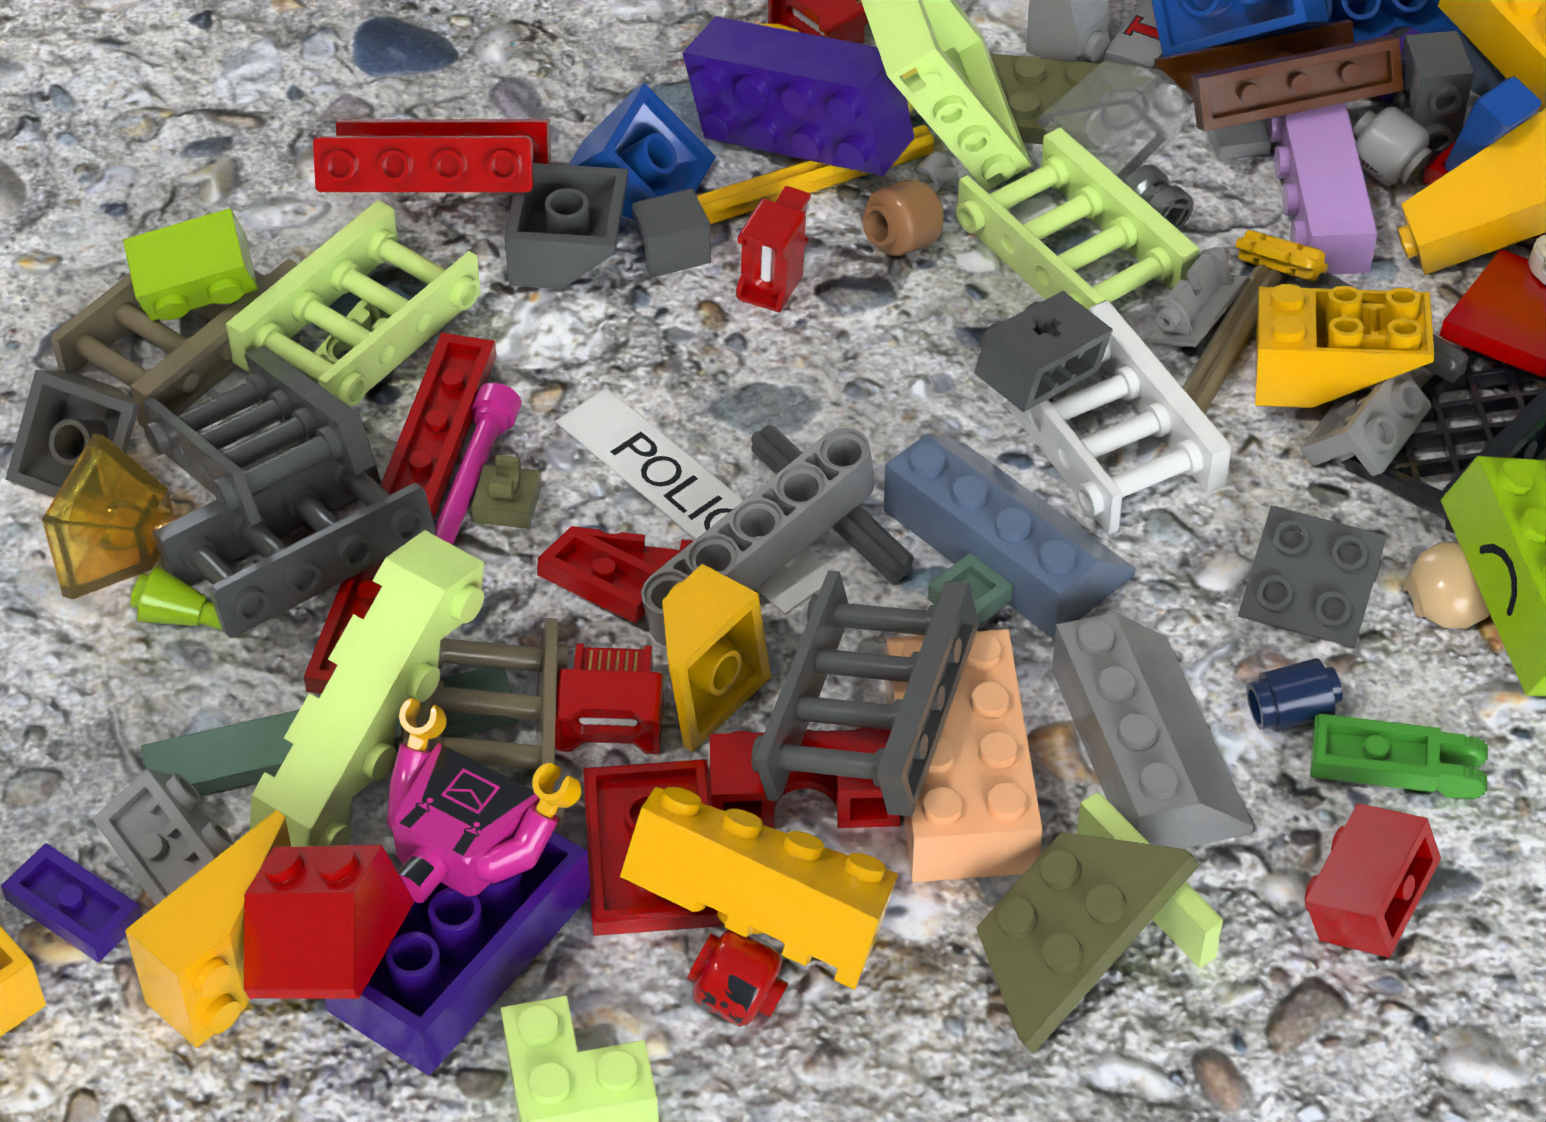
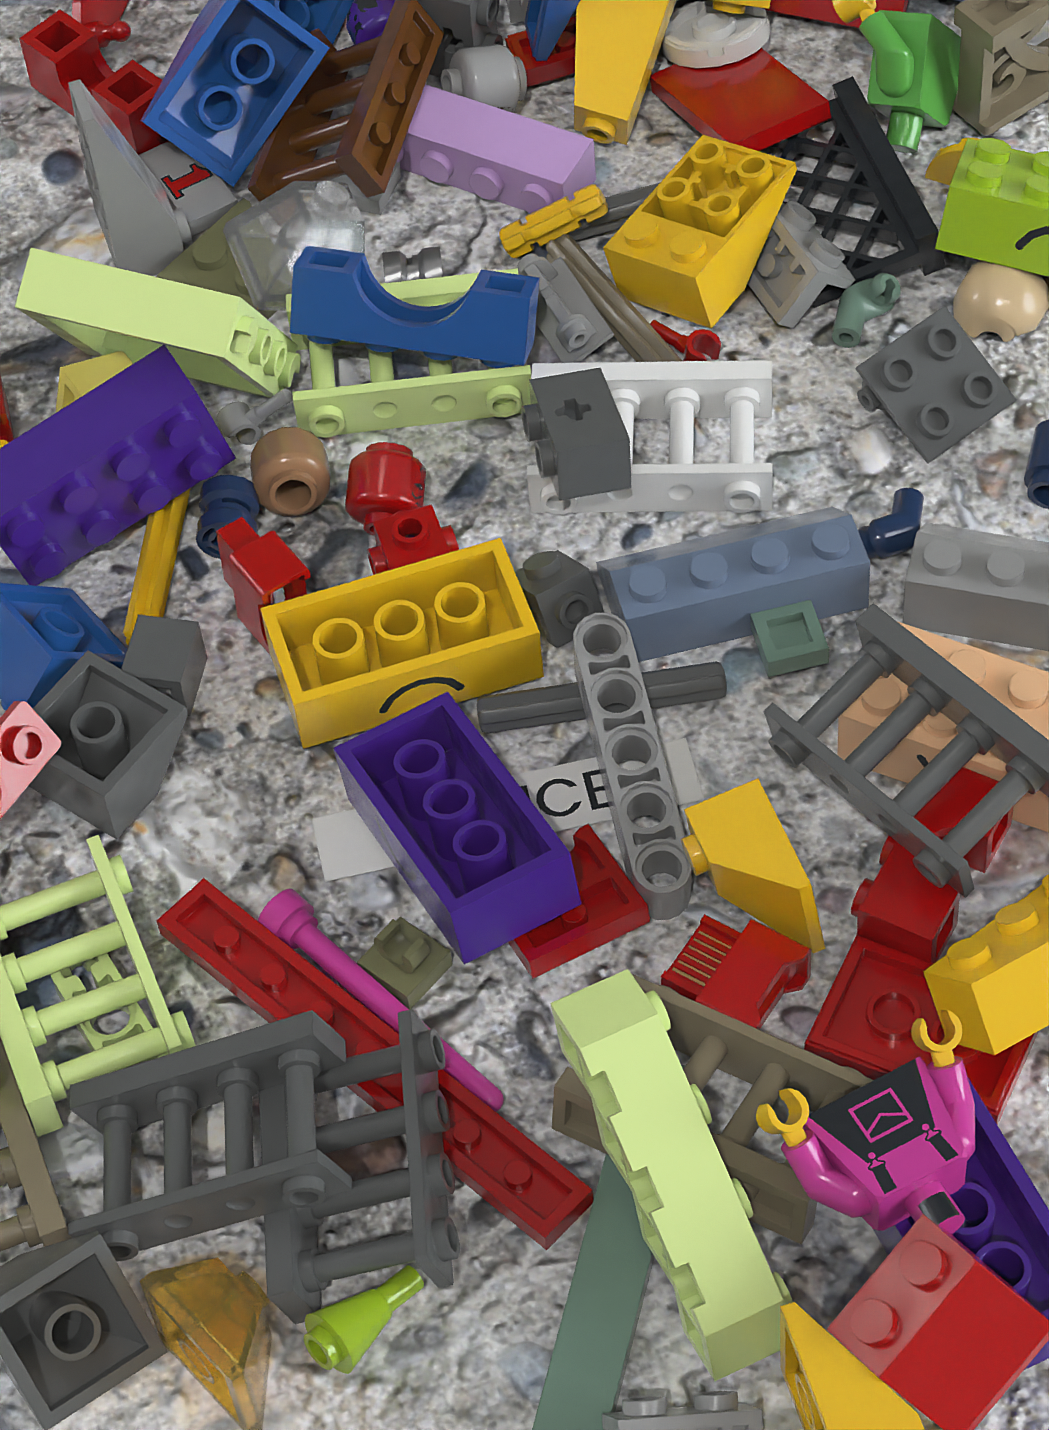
camera: 55 degrees left, 5 degrees up
(619, 452) = (458, 827): none -> dark purple brick
(779, 348) = (402, 639): none -> yellow brick
(836, 203) = (222, 502): none -> dark blue wheel
(869, 323) = (409, 538): none -> red brick
(904, 421) = (559, 593): none -> dark grey bracket
(929, 279) = (383, 483): none -> red head
(1060, 152) = (342, 300): none -> blue arch
(1160, 618) = (895, 531): none -> dark blue arm
(1232, 401) = (693, 345): none -> red hand
(1366, 493) = (862, 303): none -> sand green arm

